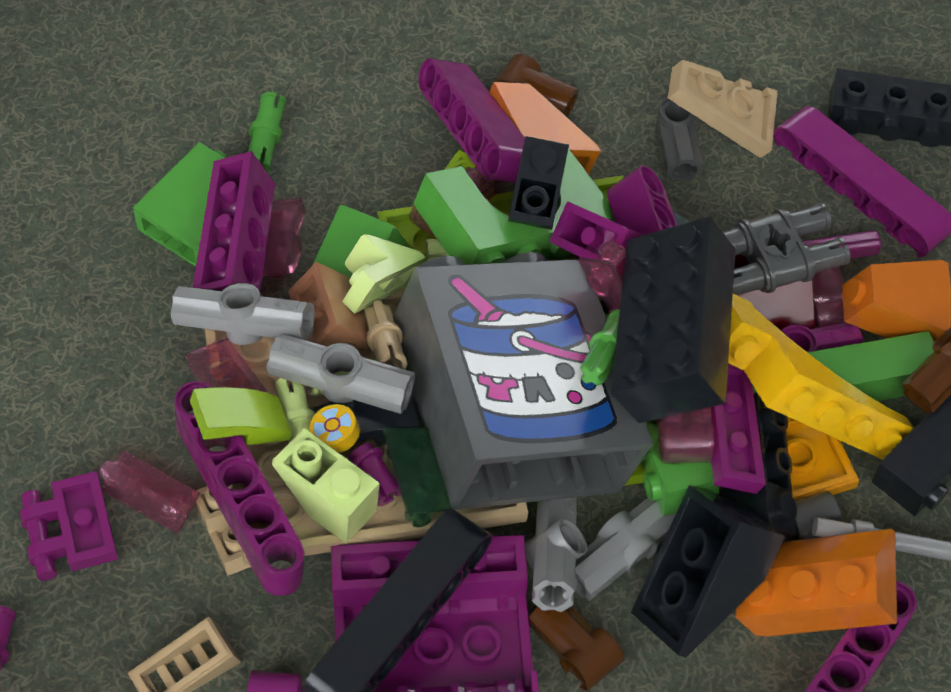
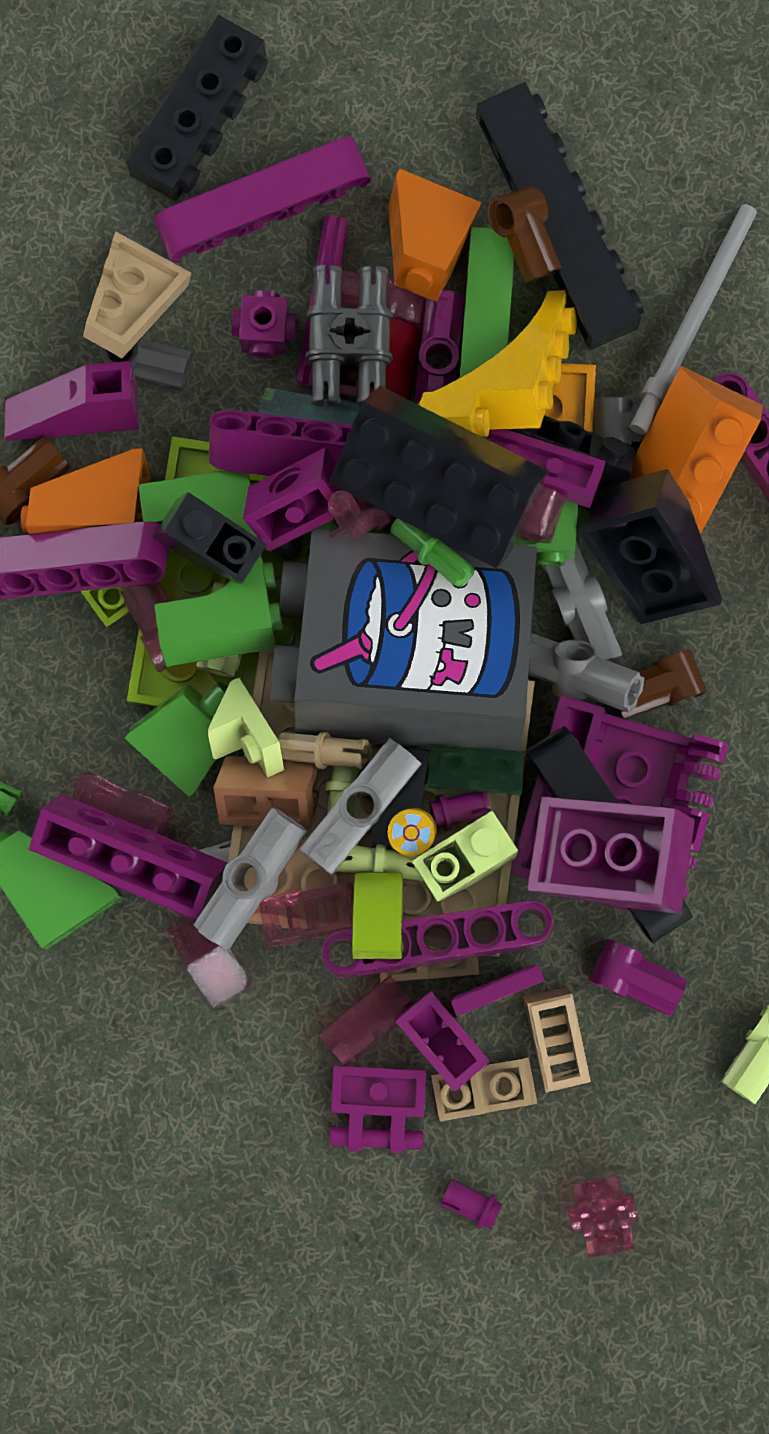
camera: 65 degrees left, 25 degrees up
(114, 616) = (489, 1090): none -> tan slope
(149, 548) = (442, 1040): none -> magenta slope
(162, 349) = (209, 964): none -> slope
(210, 577) = (496, 990): none -> magenta tile
(376, 604) = (612, 853): none -> magenta slope
(621, 105) = (76, 403): none -> magenta slope
(752, 200) = (267, 339): none -> magenta brick

